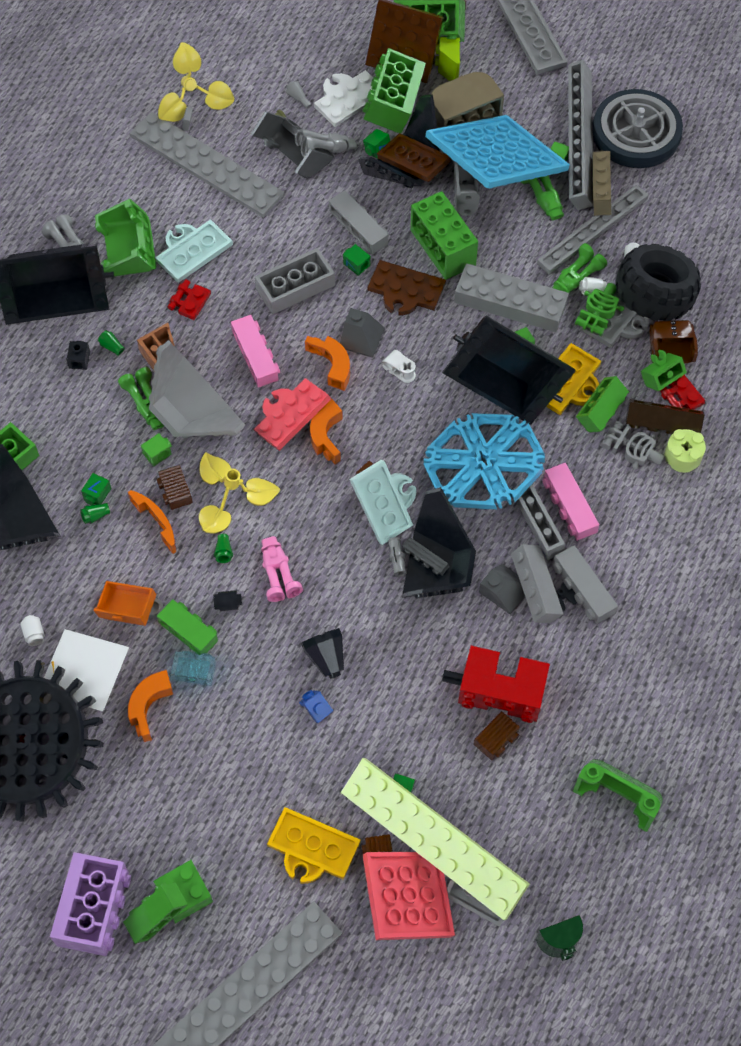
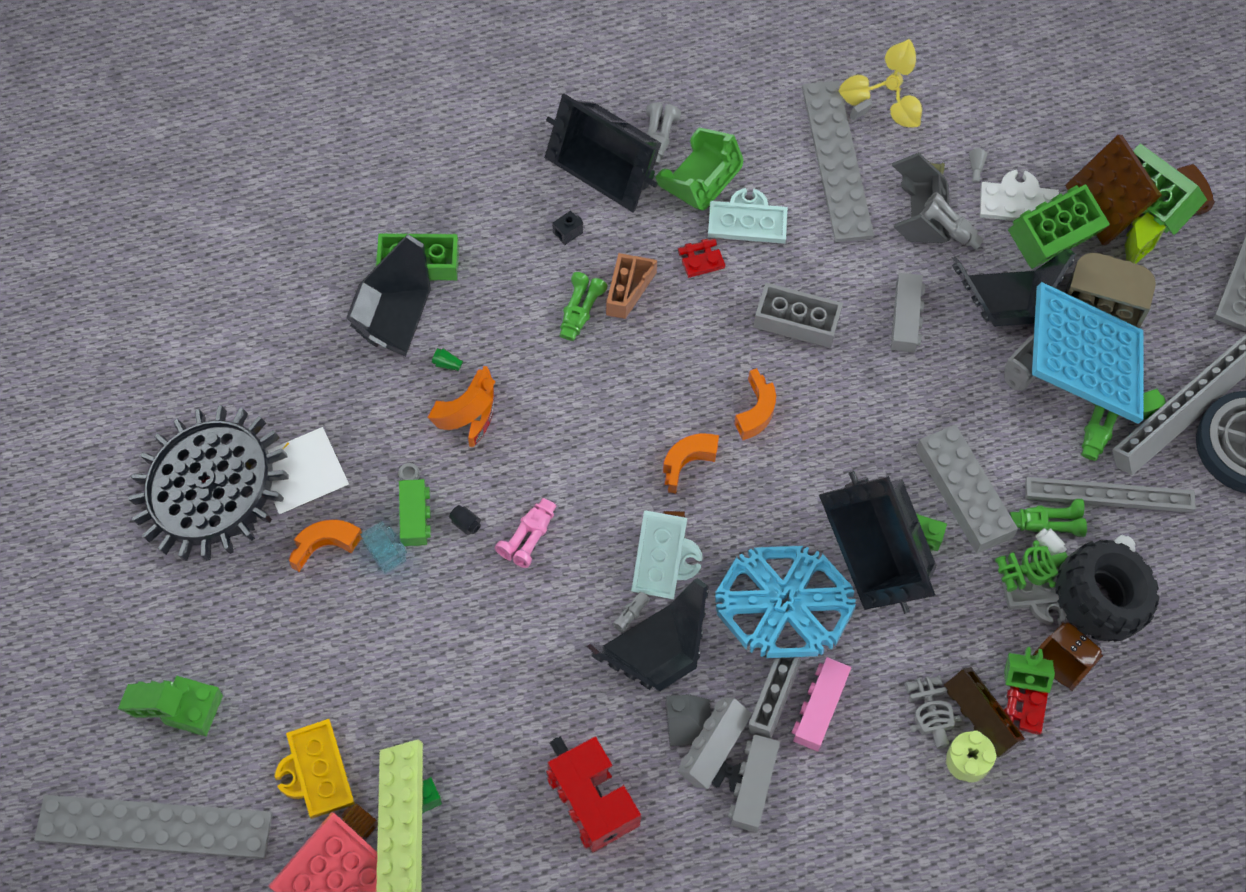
camera: 45 degrees right, 0 degrees up
(32, 630) = (306, 407): white brick -> none
(77, 902) = (119, 648): lavender brick -> none
(95, 489) = (465, 343): green brick -> none
(110, 342) = (603, 239): green cone -> none
(125, 603) = (390, 450): orange container -> none
(148, 530) = (465, 408): none -> orange arch
(156, 449) = (544, 353): bright green brick -> none
(175, 487) = (525, 395): reddish brown brick -> none
(186, 400) = (606, 332): light grey piece -> none
(216, 469) = (570, 412): light yellow plant -> none
(223, 551) = (506, 478): green cone -> none
(254, 350) = (704, 344): bright pink brick -> none
(290, 412) = (675, 417): coral plate -> none
(316, 705) = (439, 665): blue bracket -> none
(326, 652) = (489, 632): black cone -> none
(356, 259) = (870, 341): green brick -> none
(361, 333) = (806, 405): dark grey slope -> none
(375, 142) = (996, 260): green brick -> none
(400, 366) = (807, 460): white piece -> none
(405, 287) = (887, 401): reddish brown plate -> none
(414, 157) = (1012, 297): reddish brown plate -> none
(424, 555) = (652, 633): dark grey piece -> none
(443, 235) = (963, 384): bright green brick -> none
(497, 736) = (545, 831): reddish brown brick -> none
(581, 380) = (954, 600): yellow plate -> none
(601, 183) = (1160, 461): dark tan brick -> none
(602, 404) = (942, 649): bright green brick -> none

